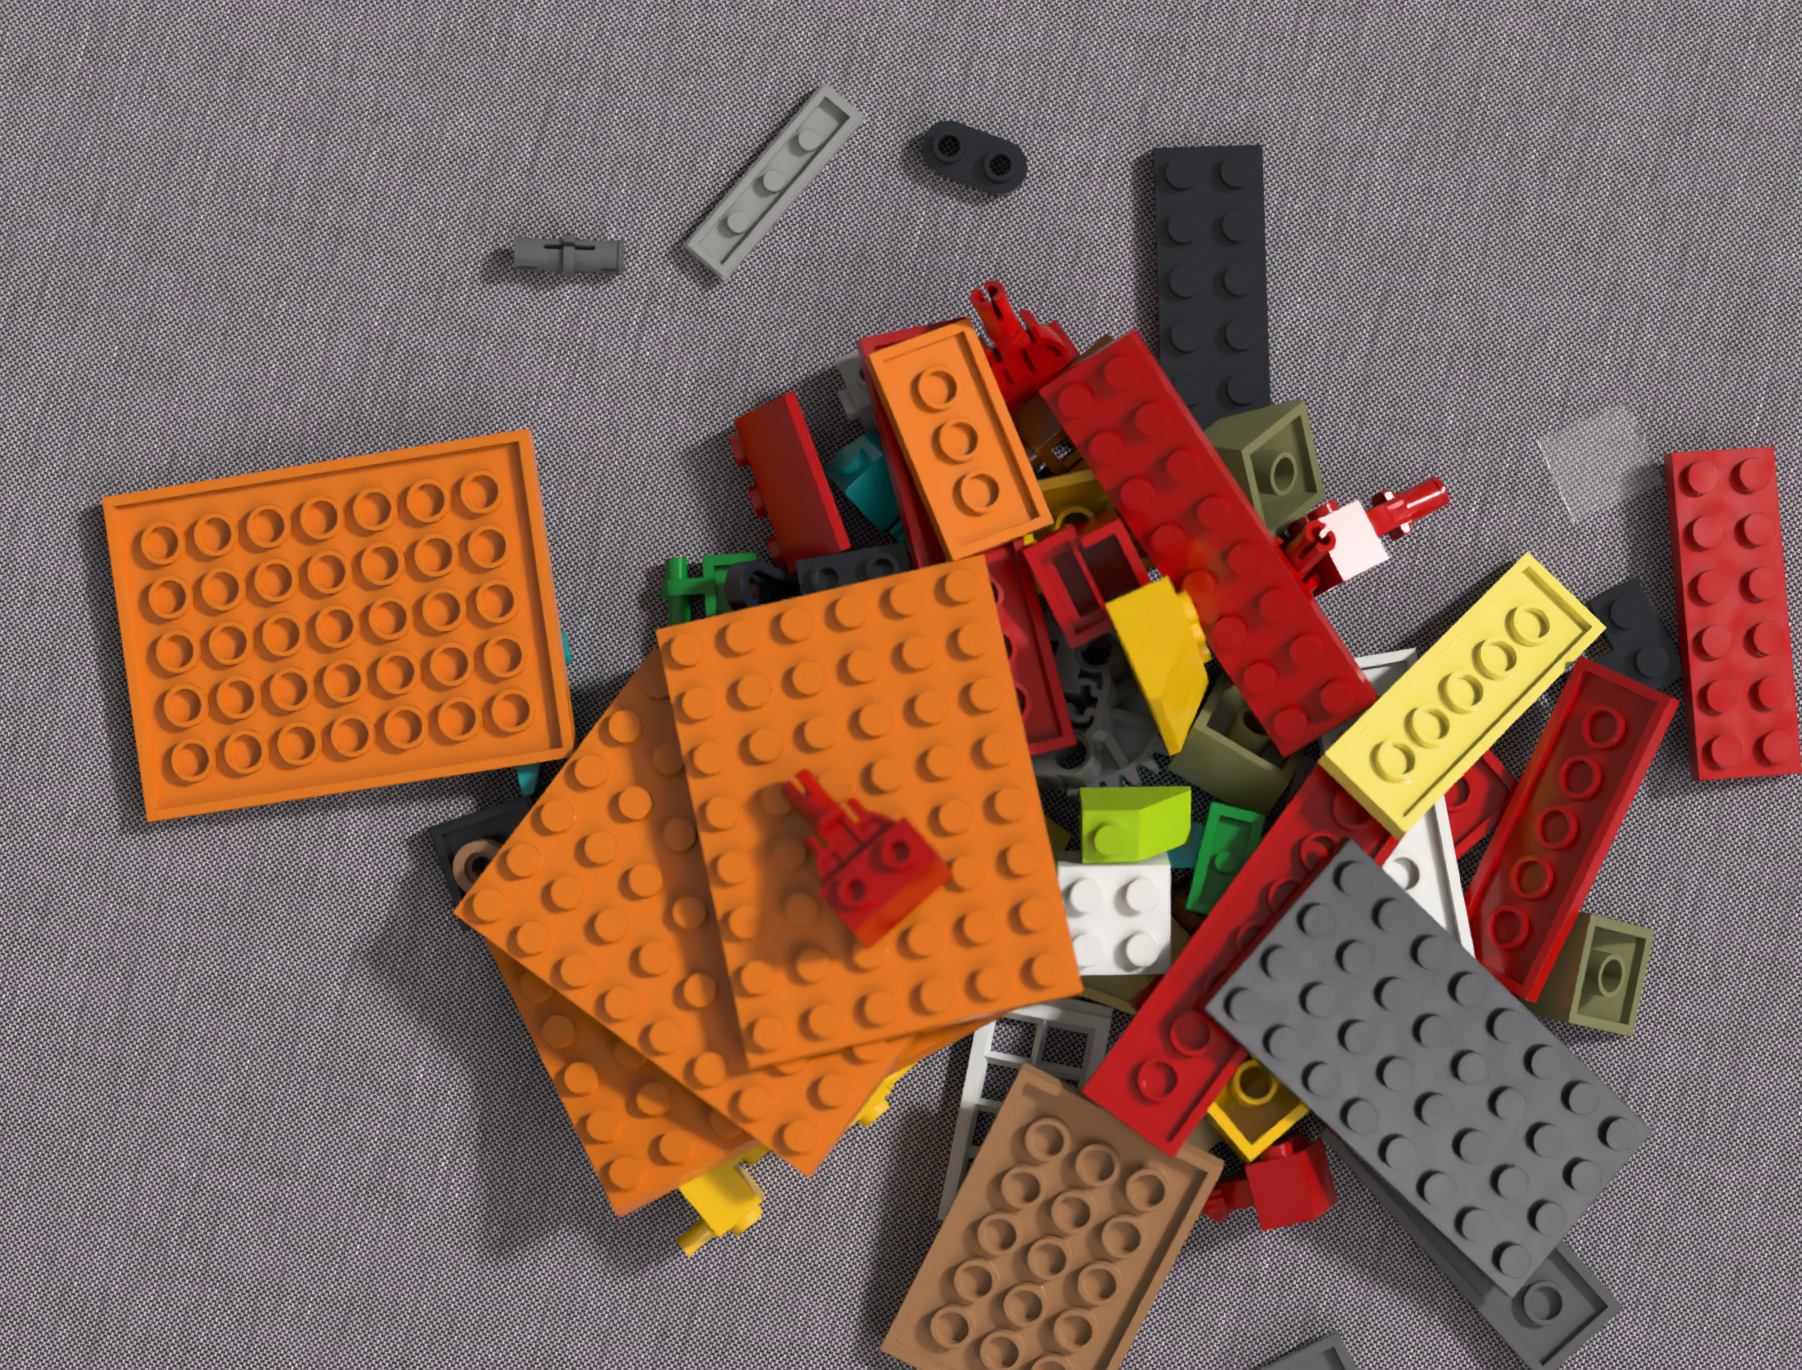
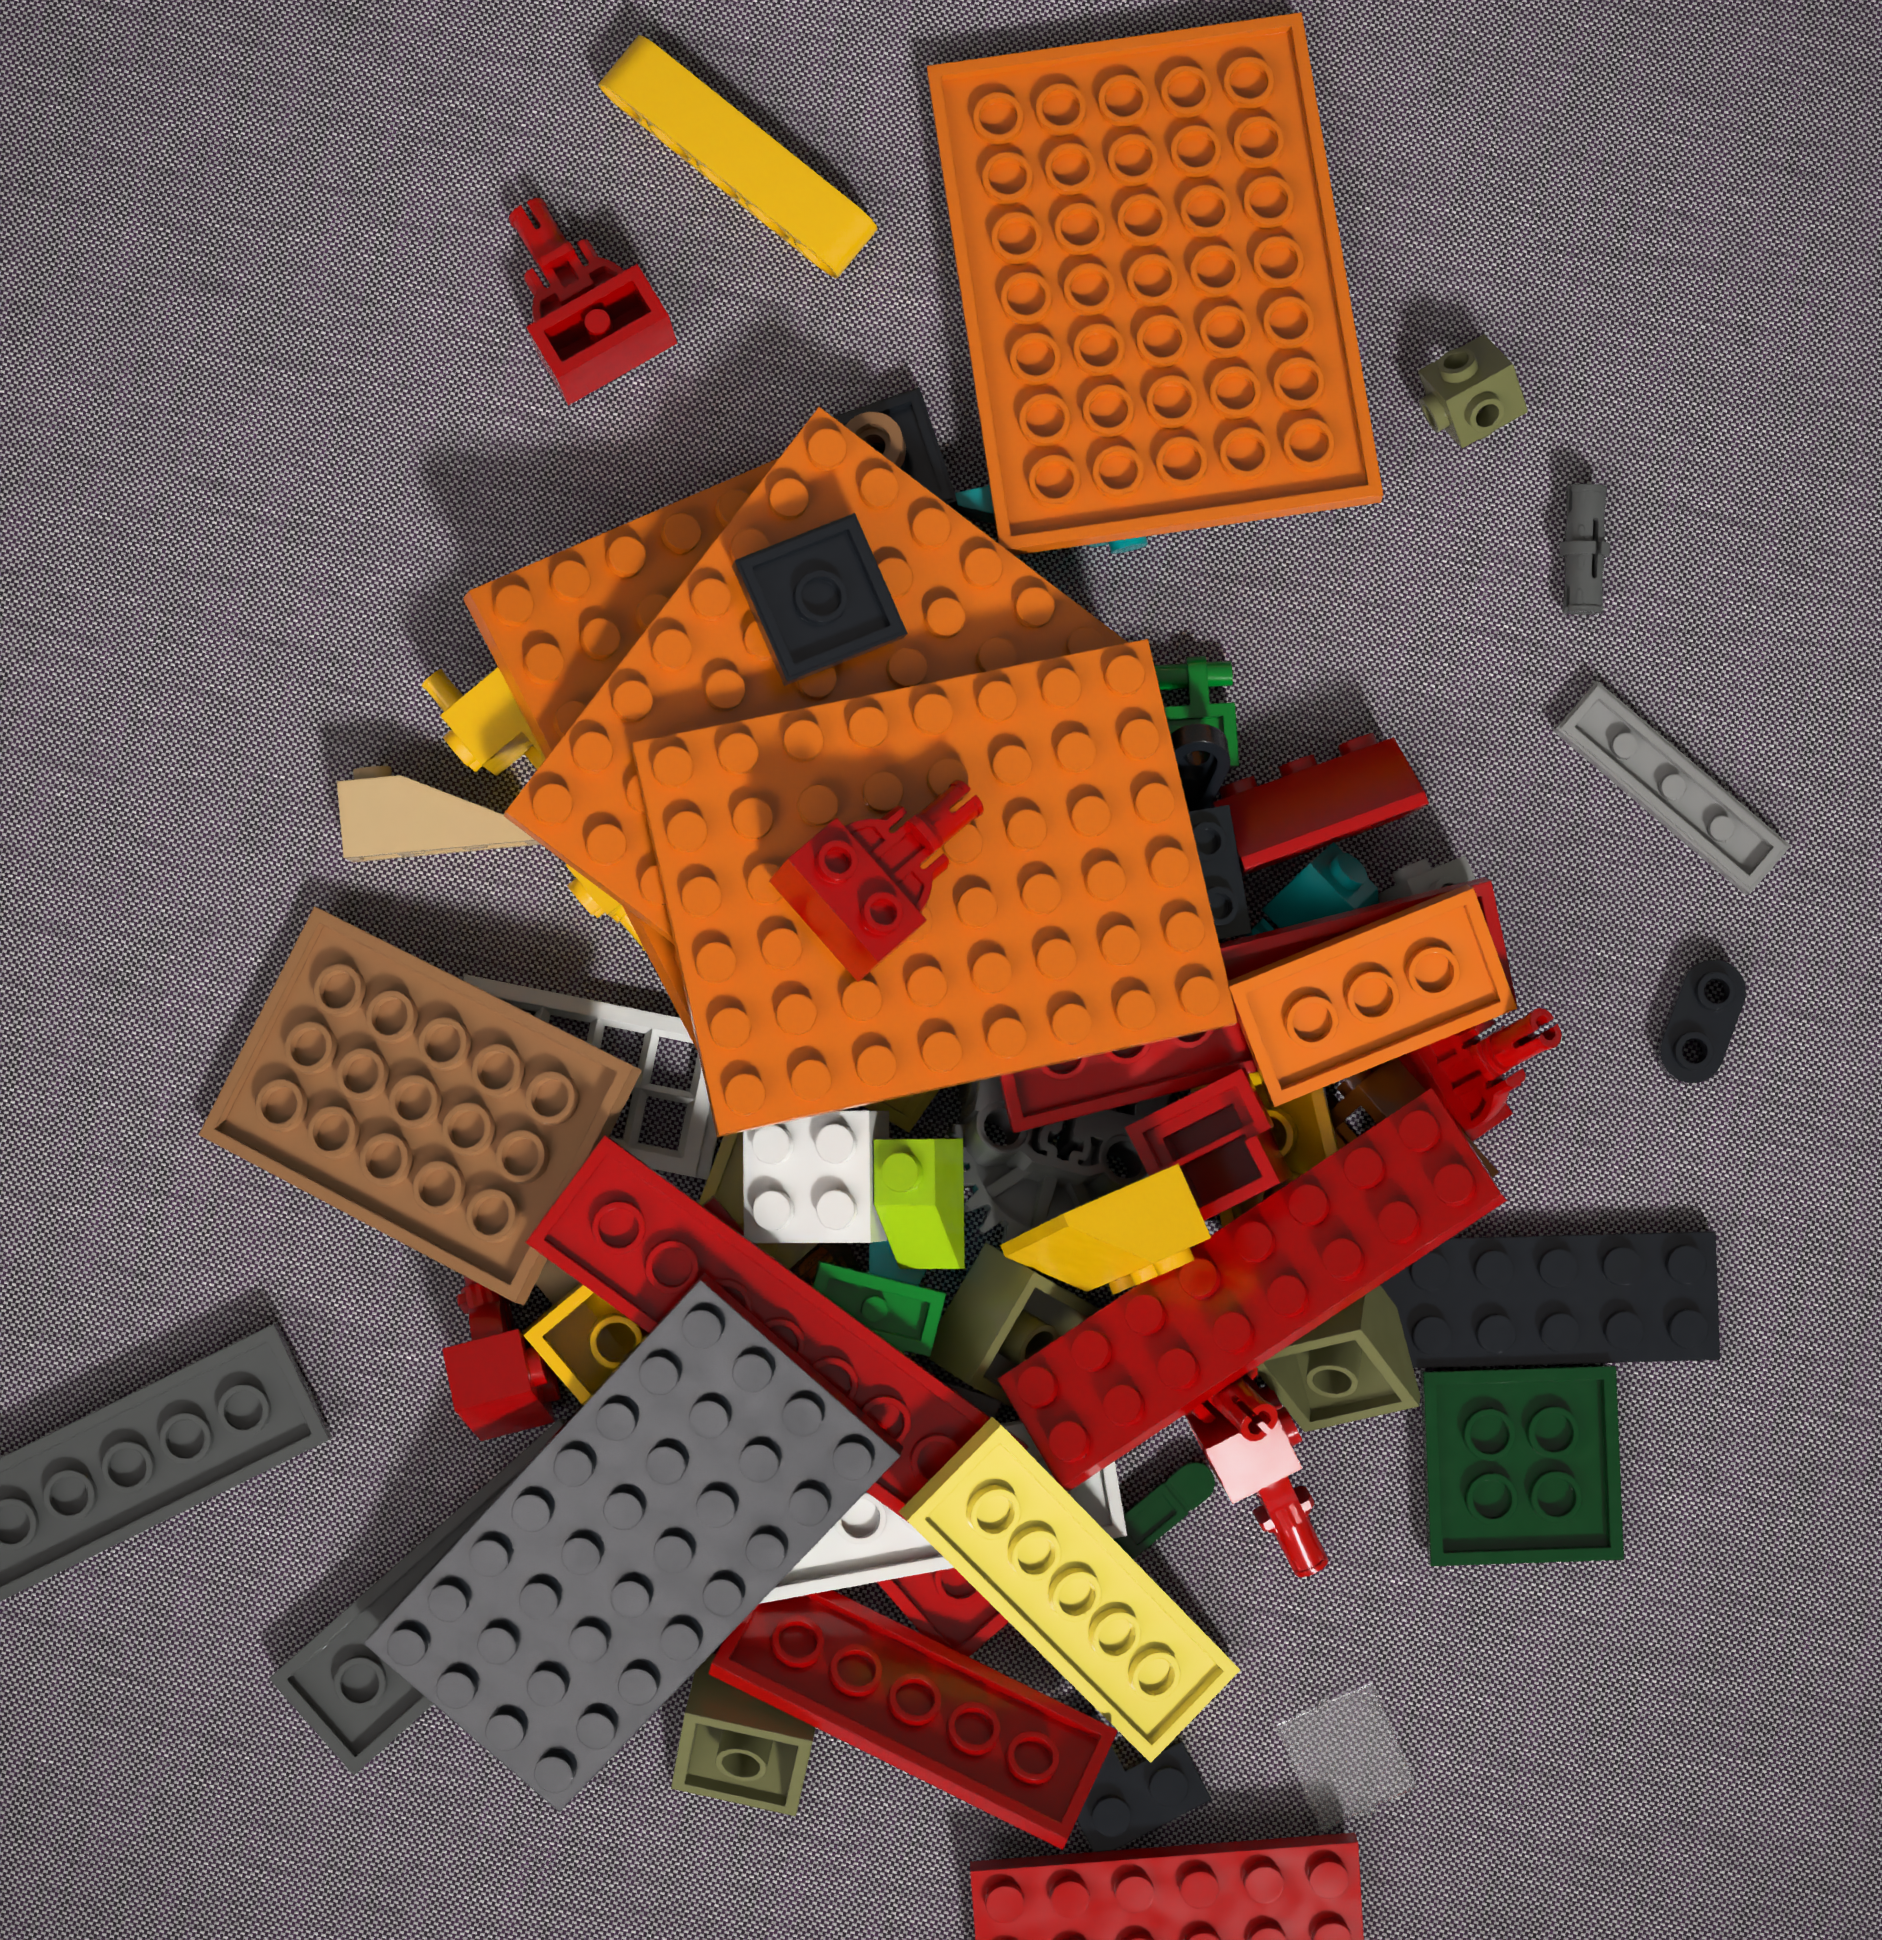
camera: 85 degrees right, 0 degrees up
(225, 986) = (738, 156): none -> yellow beam
(366, 1111) = (591, 317): none -> red brick
(434, 352) = (1471, 392): none -> olive brick
(623, 910) = (819, 599): none -> black plate
(803, 1272) = (405, 818): none -> tan slope
(1352, 312) = (1522, 1465): none -> dark green plate
(1389, 615) = (1165, 1506): none -> dark green piece

